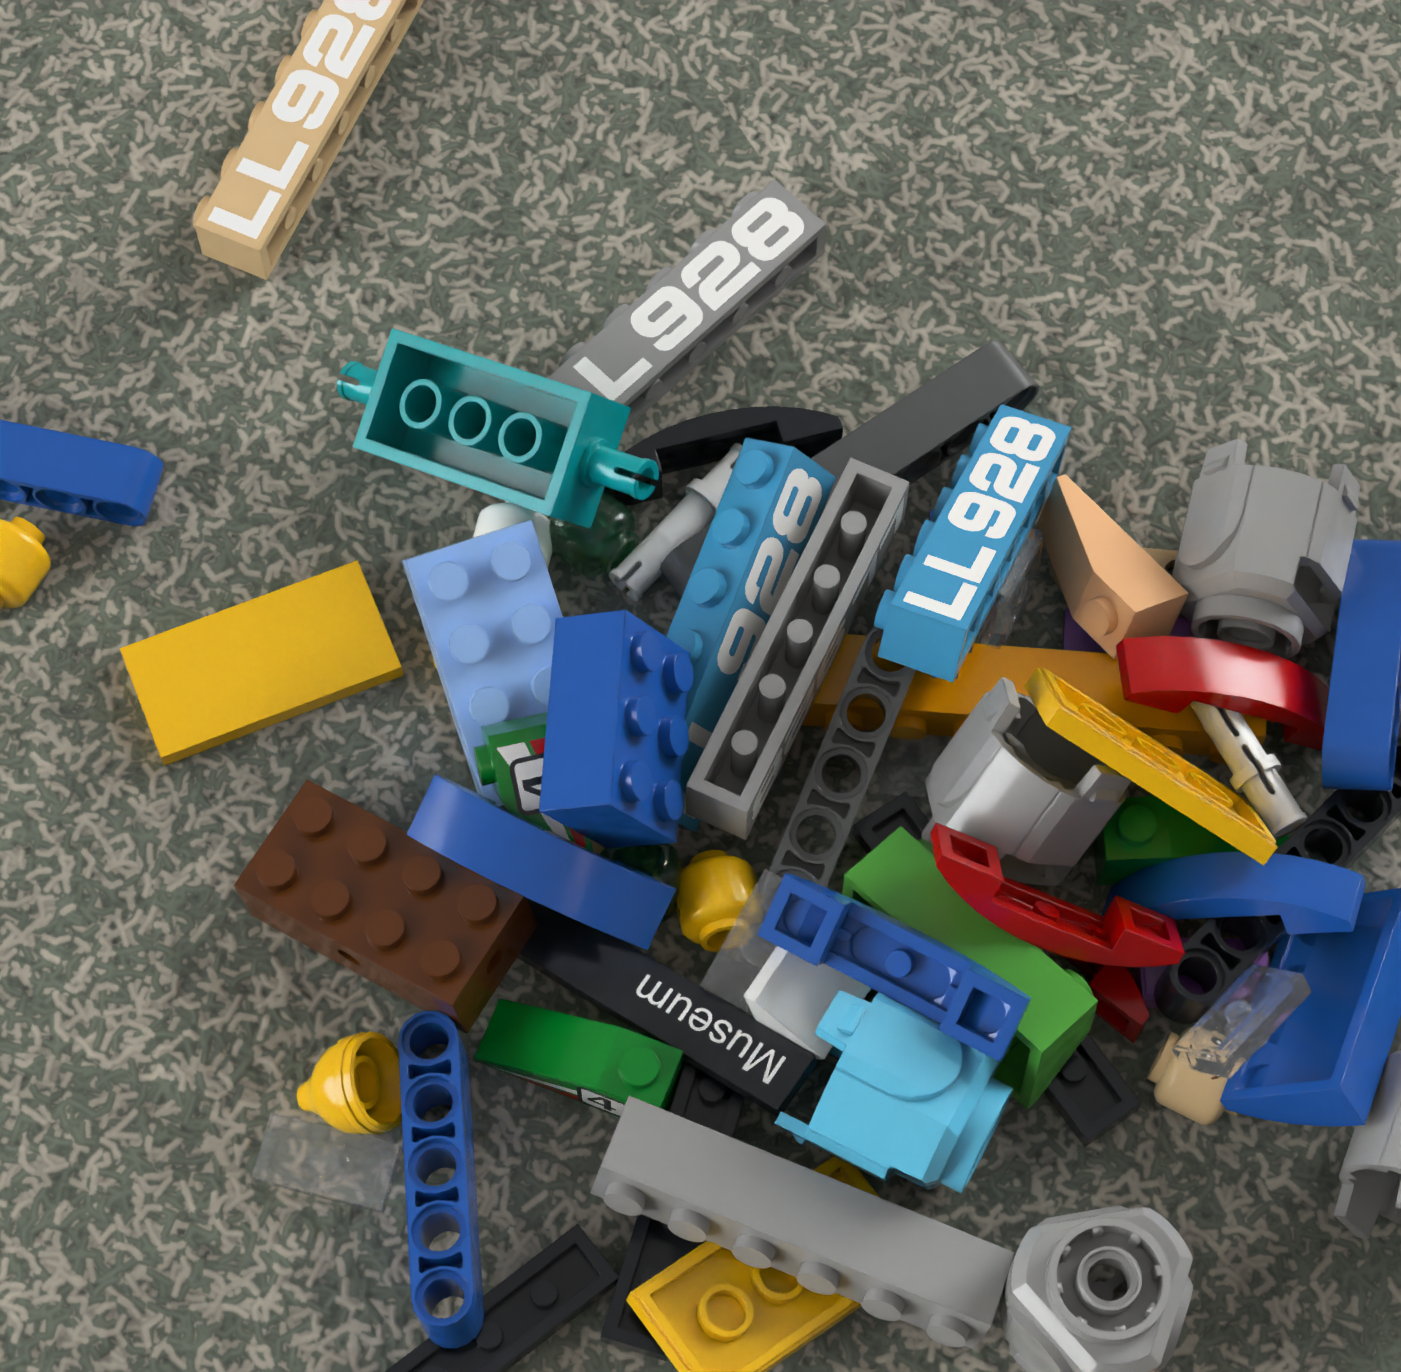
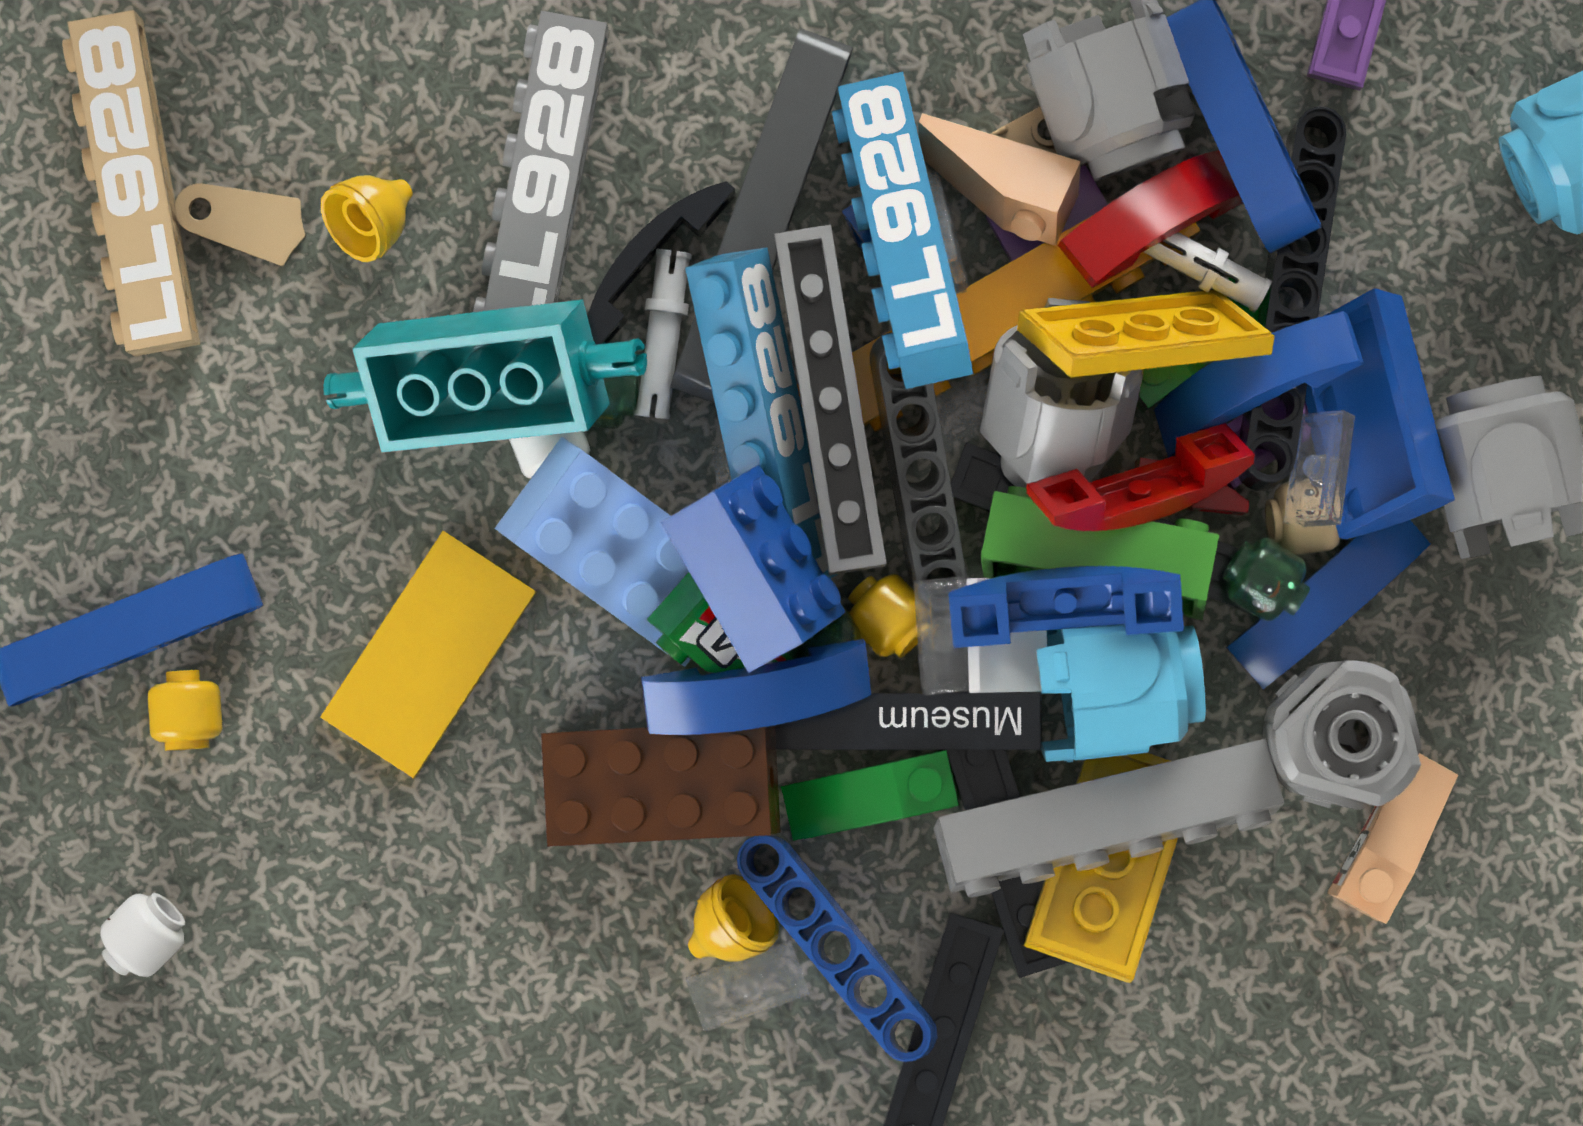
camera: 35 degrees left, 20 degrees up
(384, 201) = (244, 220): none -> tan piece
(494, 253) = (366, 214): none -> yellow helmet
(1118, 1096) = (1266, 579): none -> clear green head
(1175, 1170) = (1334, 596): none -> blue slope

